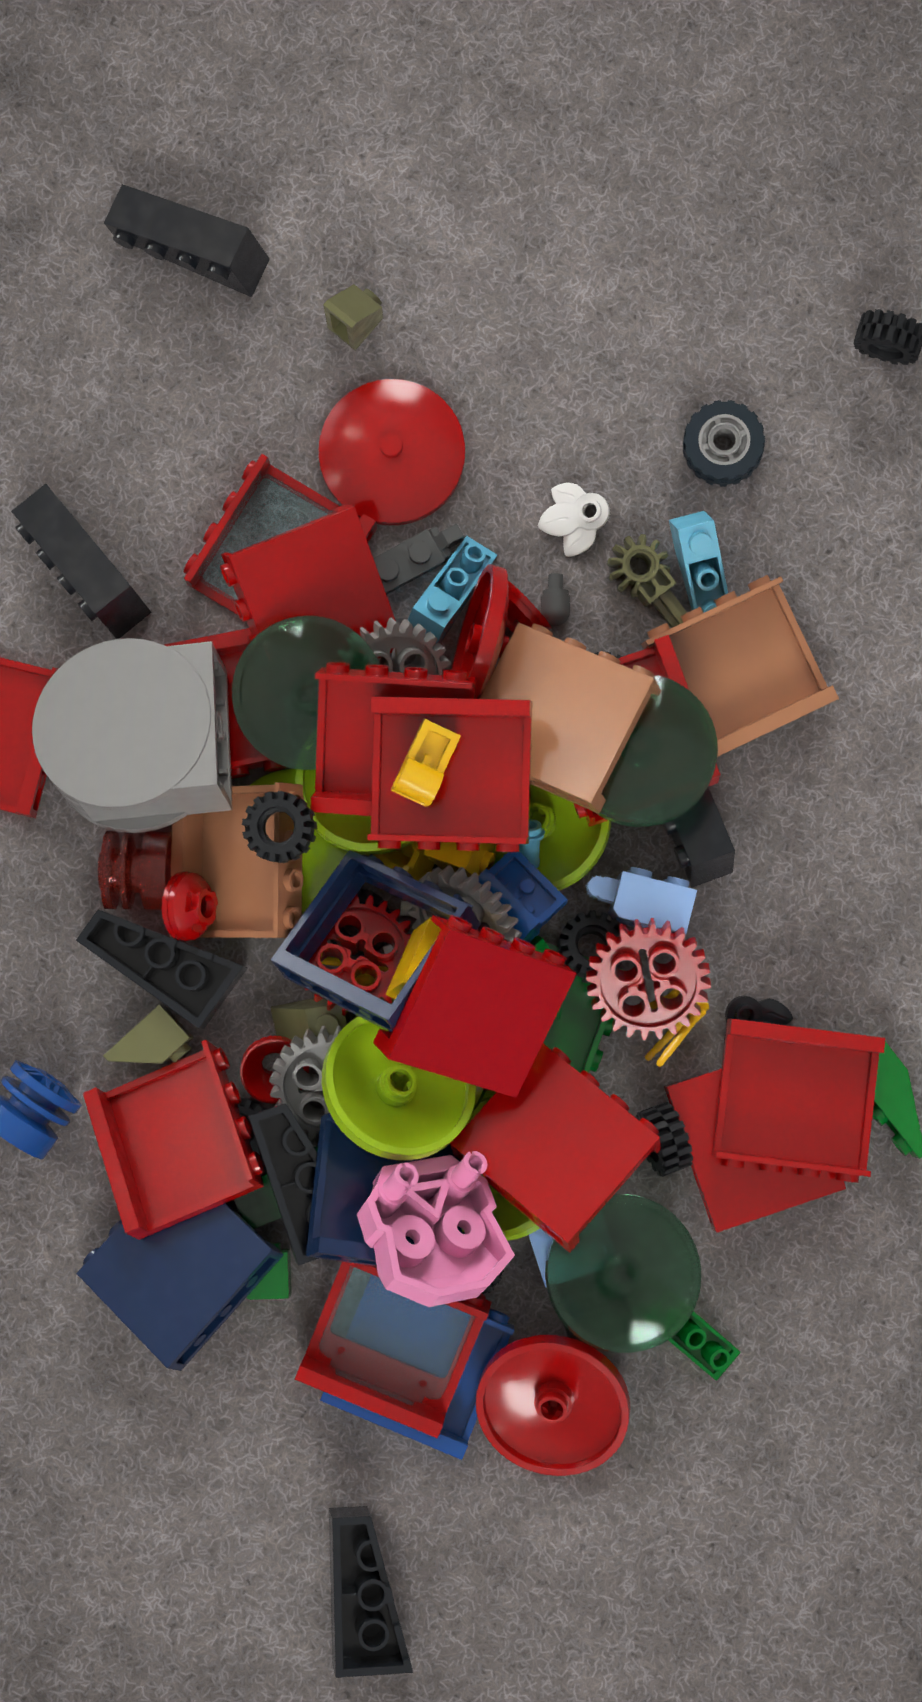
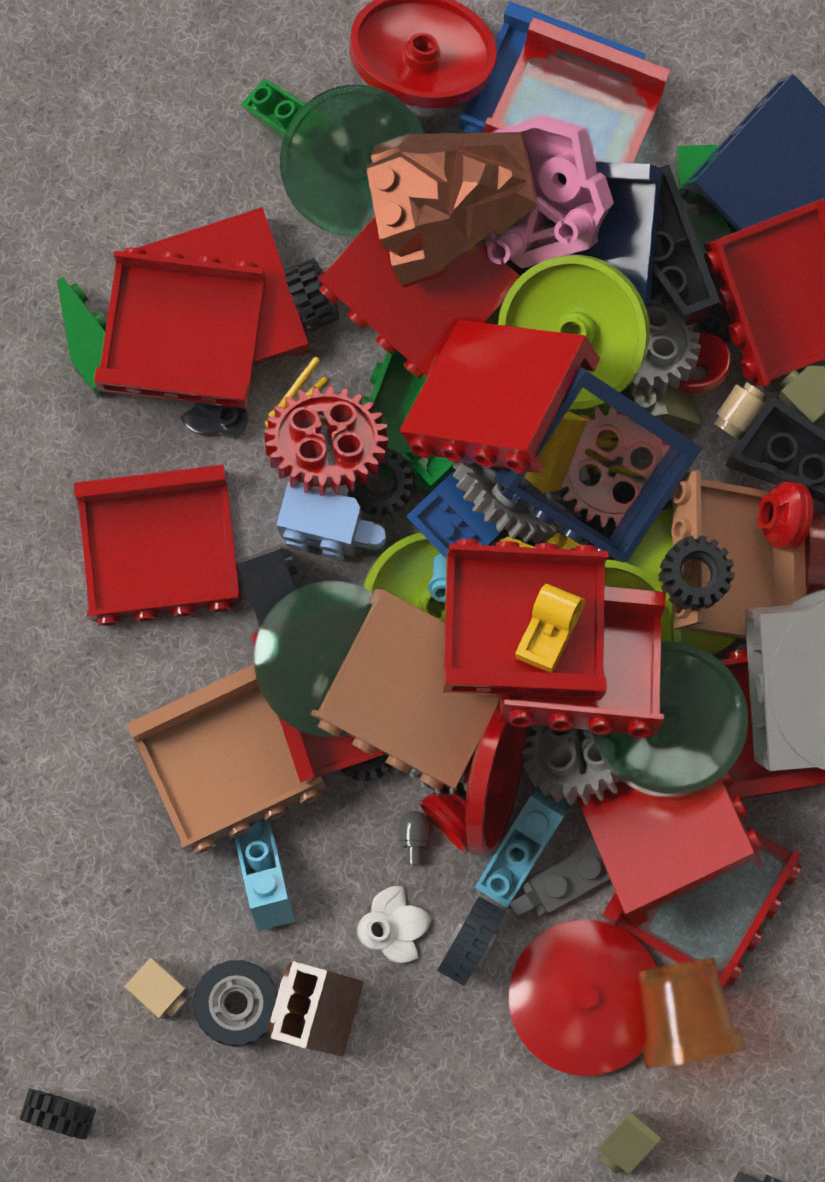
camera: 175 degrees left, 5 degrees down
(230, 1020) = (740, 410): none -> tan brick
(296, 422) = (686, 1014): none -> clear orange piece
(500, 494) = (471, 941): none -> black wheel
(530, 1220) = (446, 195): none -> copper wedge
(650, 430) = (315, 1008): none -> reddish brown brick
(652, 586) = (312, 852): olive gear -> none
(798, 455) = (157, 989): none -> tan brick
(811, 884) = (158, 544): none -> red panel

